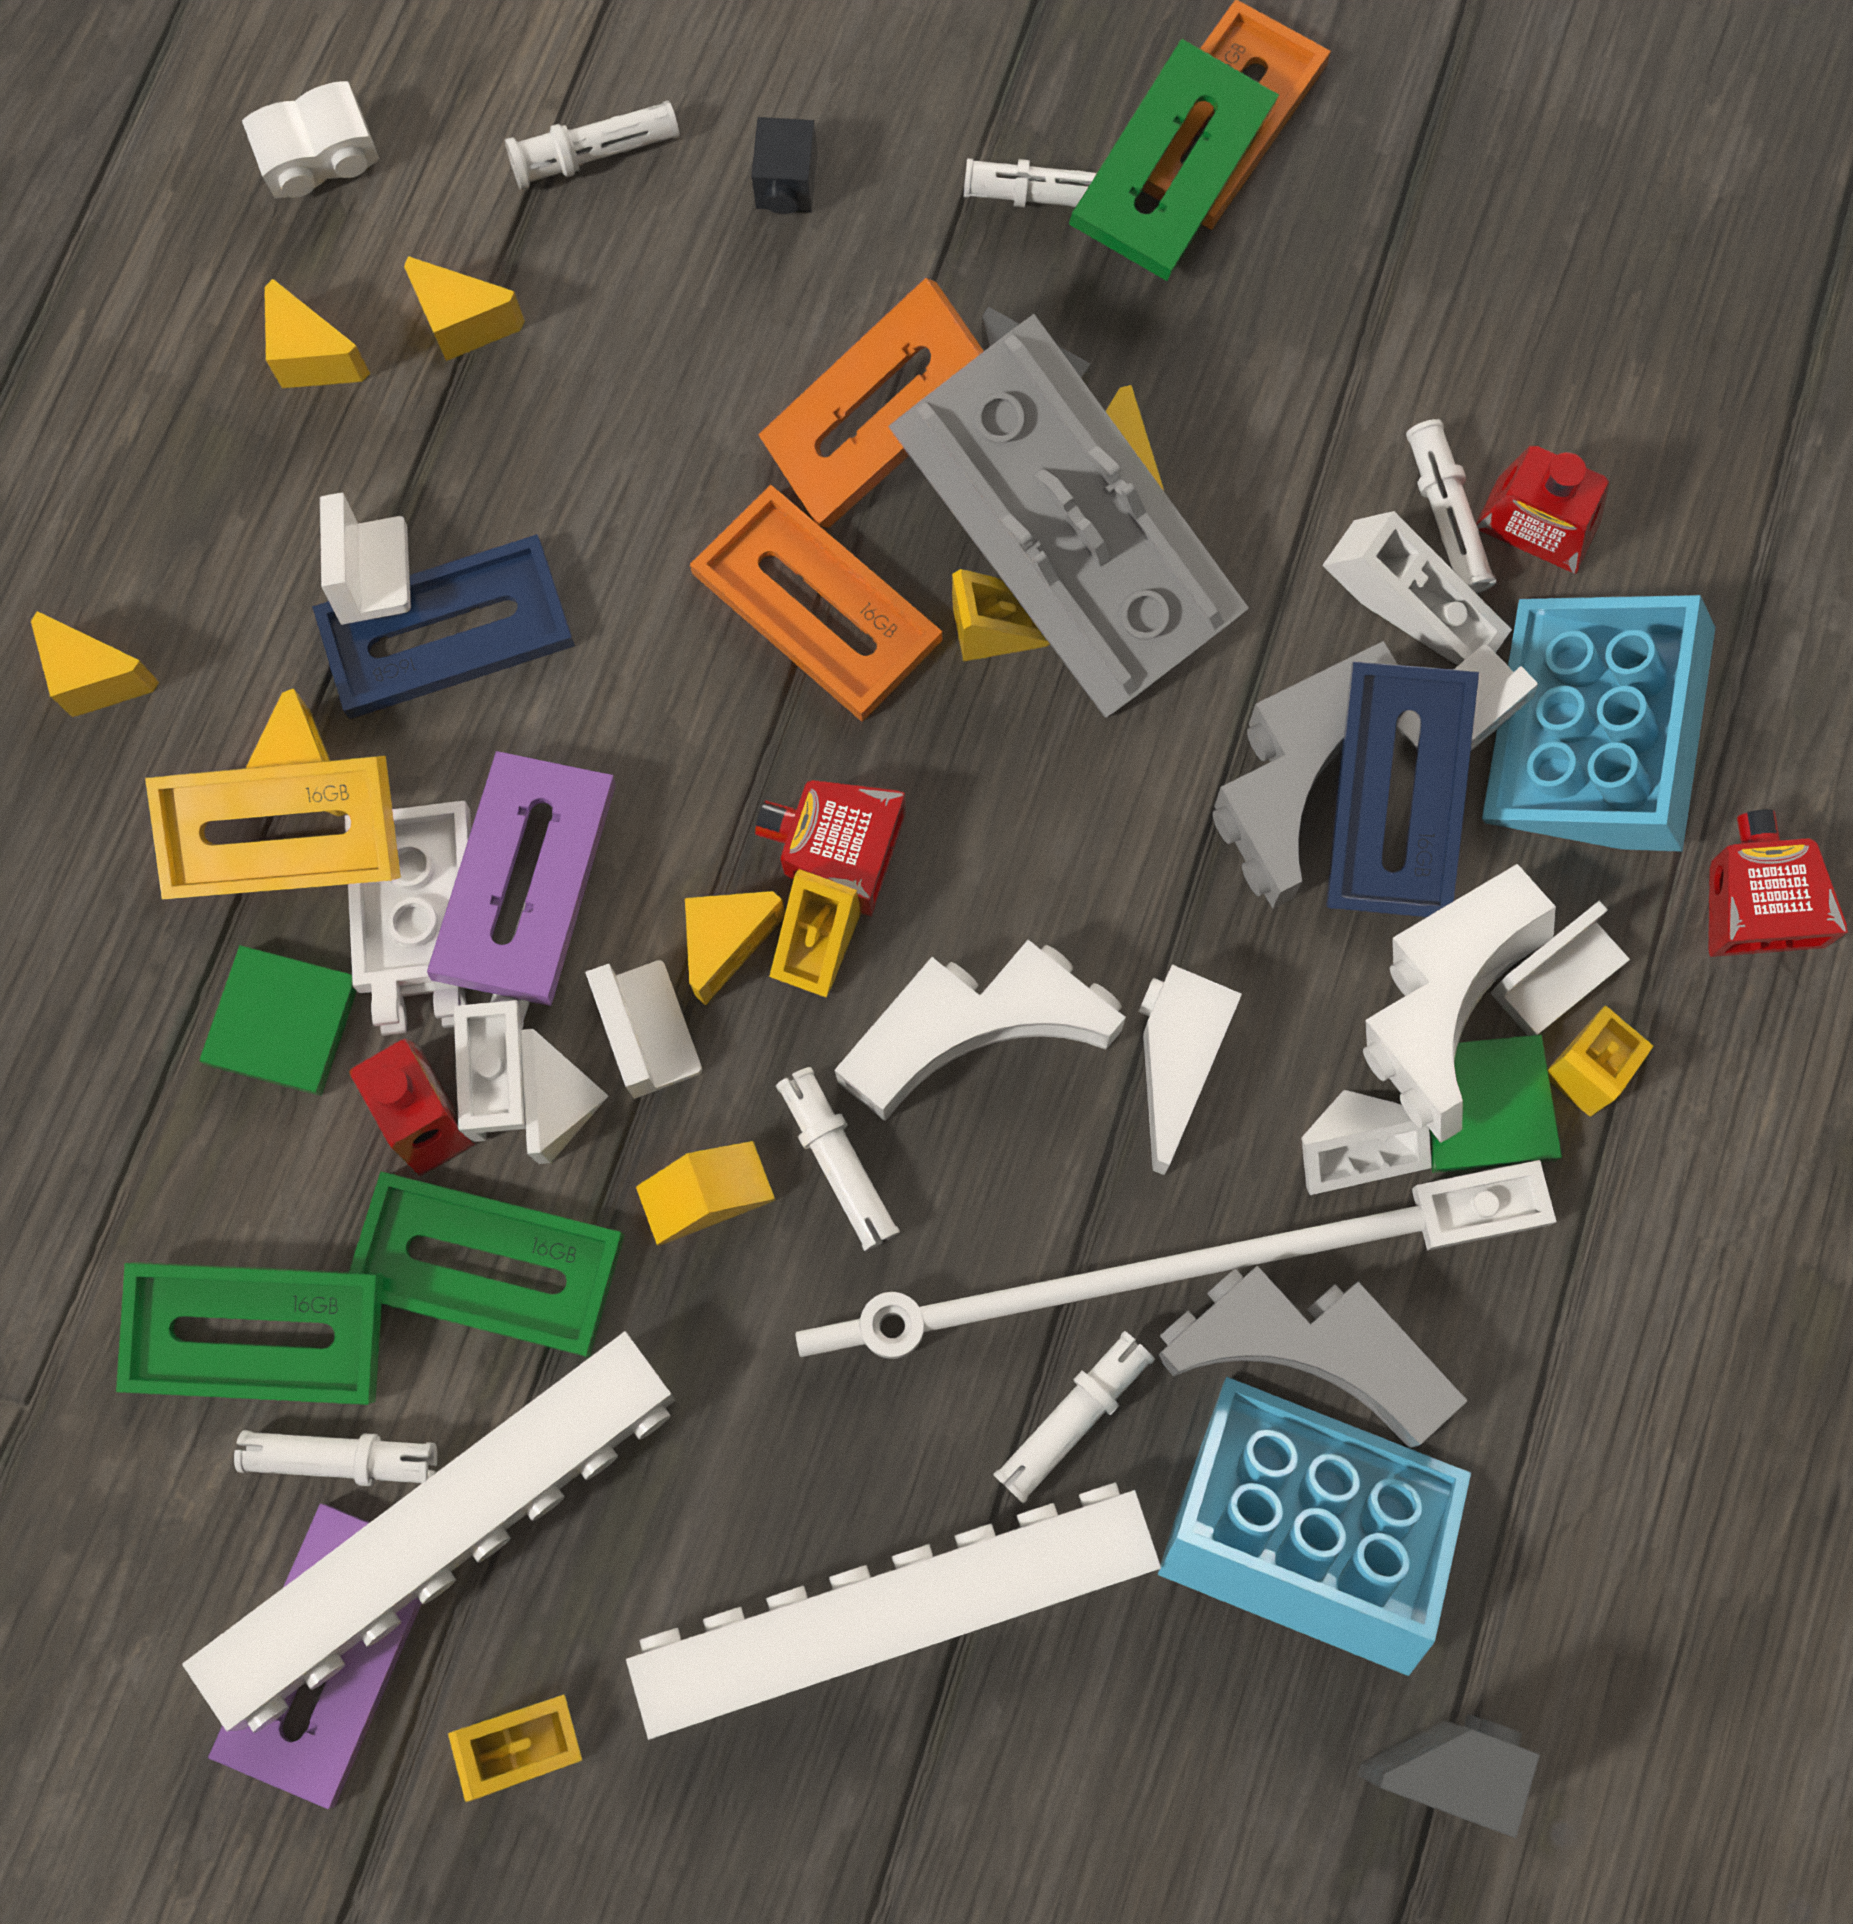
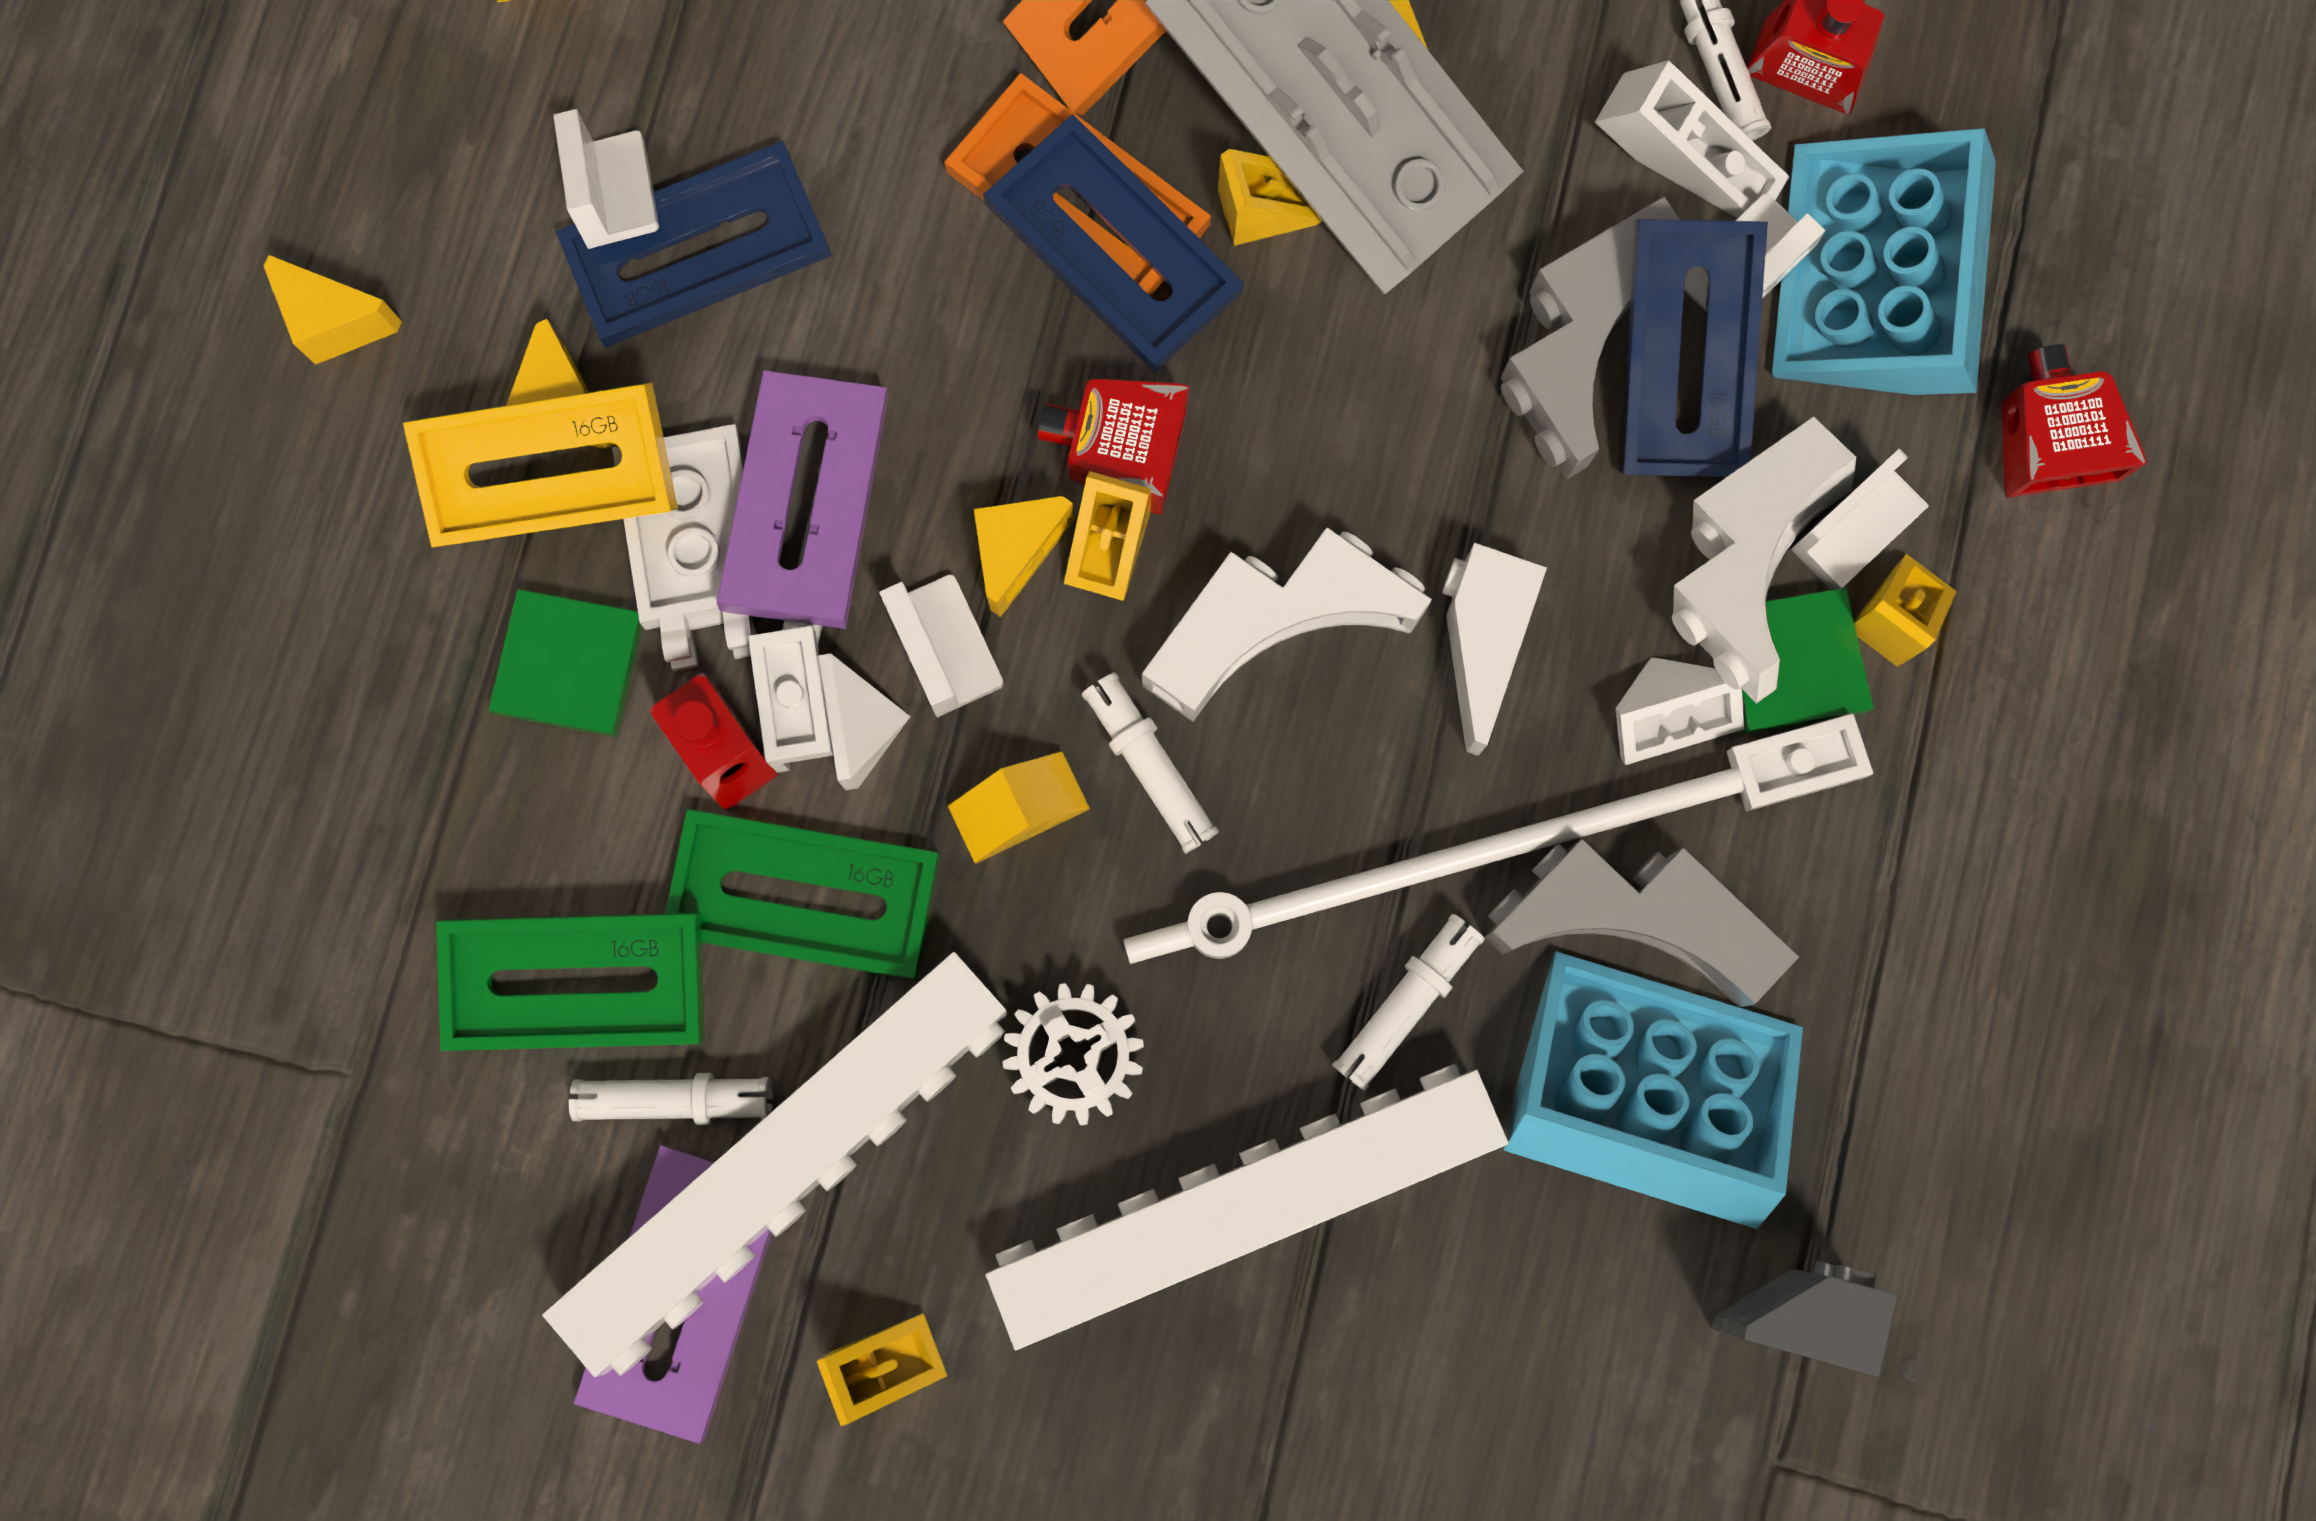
camera: 10 degrees left, 5 degrees up
(722, 1417) = (1057, 1027): none -> white gear
(820, 572) = (1081, 162): none -> dark blue piece

